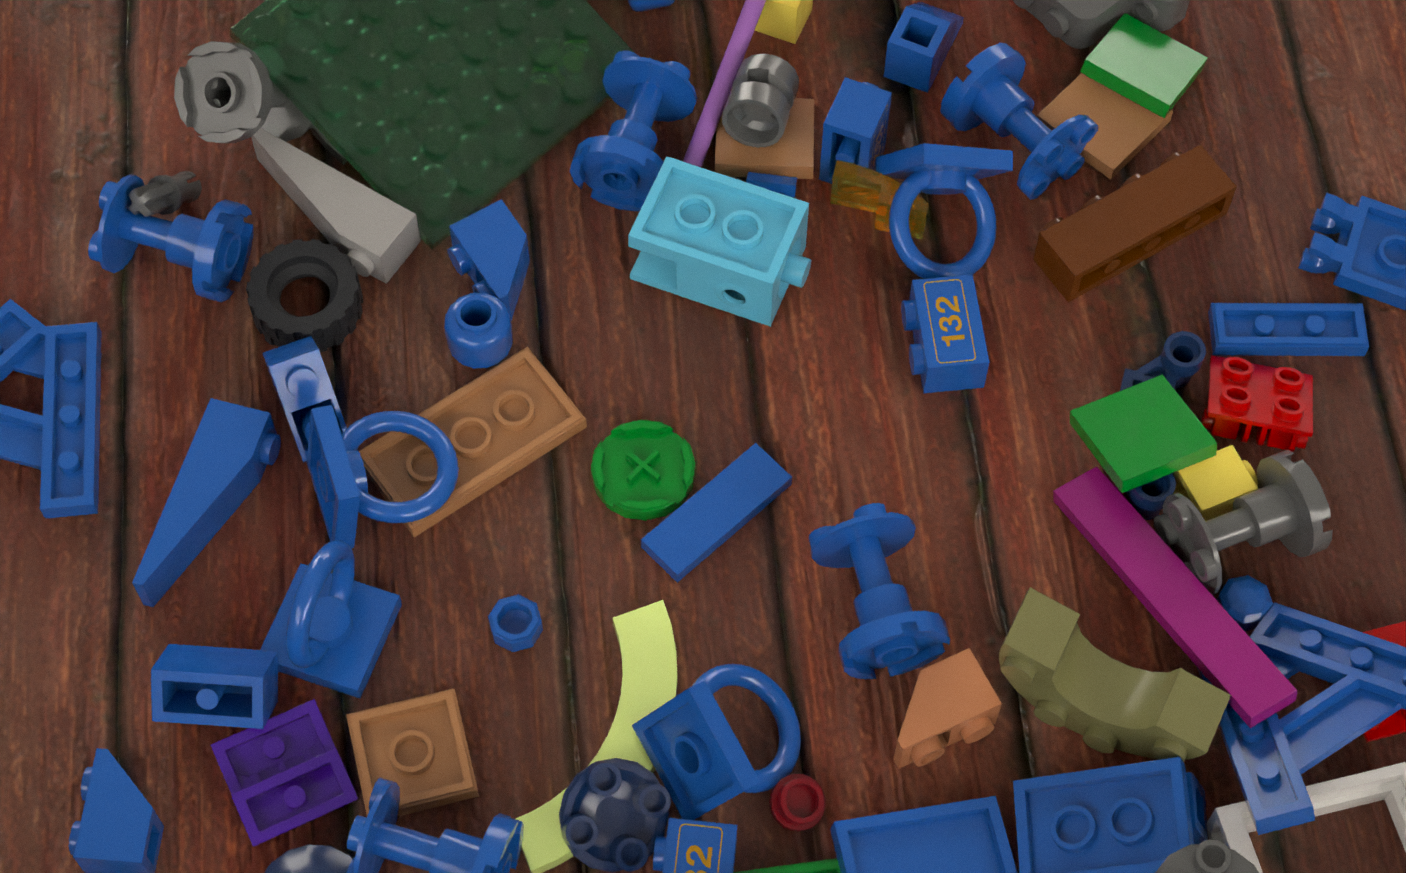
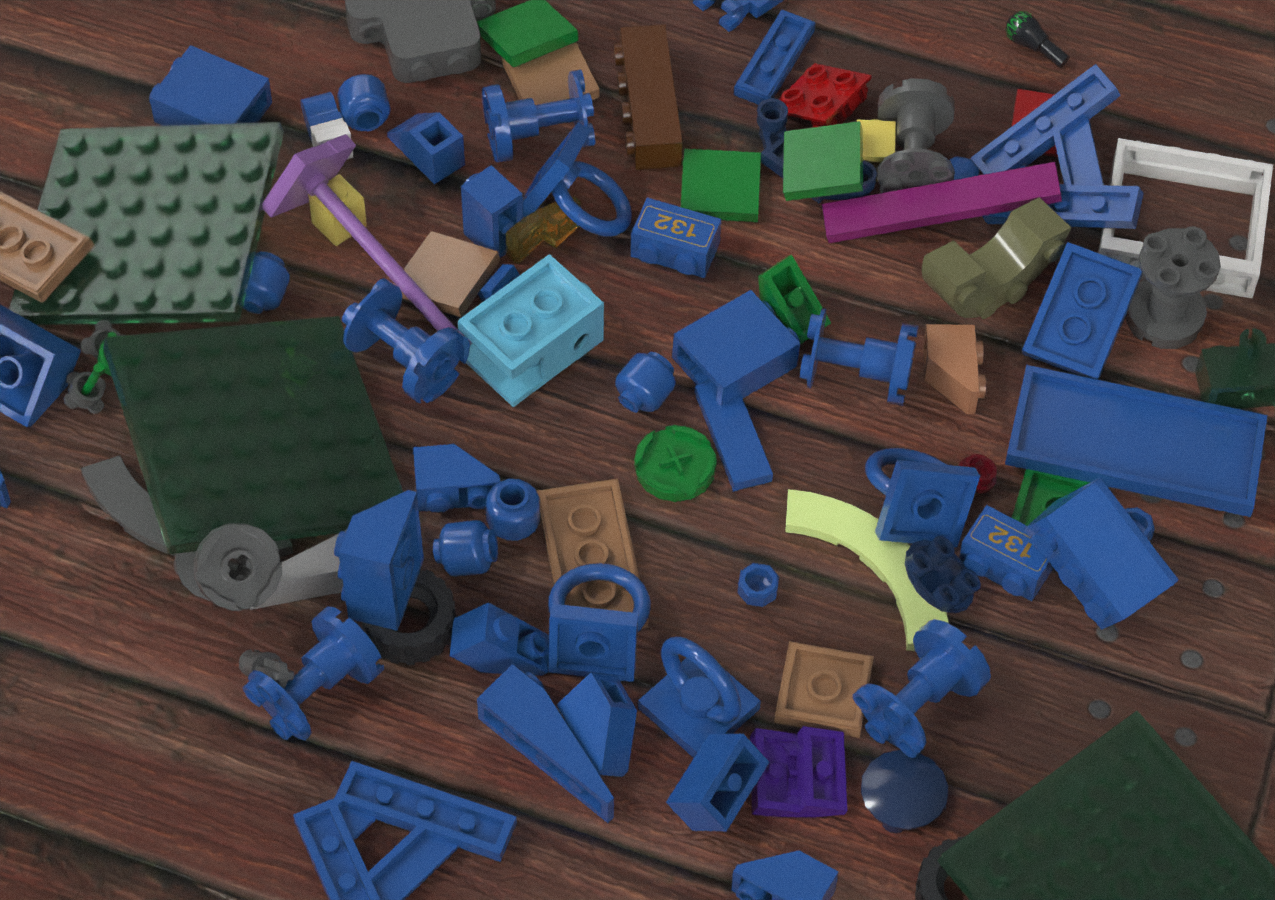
camera: 65 degrees left, 5 degrees down
(241, 537) = (602, 722): none -> blue slope
(299, 217) = (381, 560): none -> blue slope
(411, 310) = (466, 548): none -> blue head
(723, 387) = (645, 382): none -> blue head
(760, 100) = (430, 253): dark grey wheel -> none
(824, 458) = (736, 348): none -> blue brick
(927, 484) = (790, 296): none -> green slope
(1060, 351) = (722, 183): none -> green tile

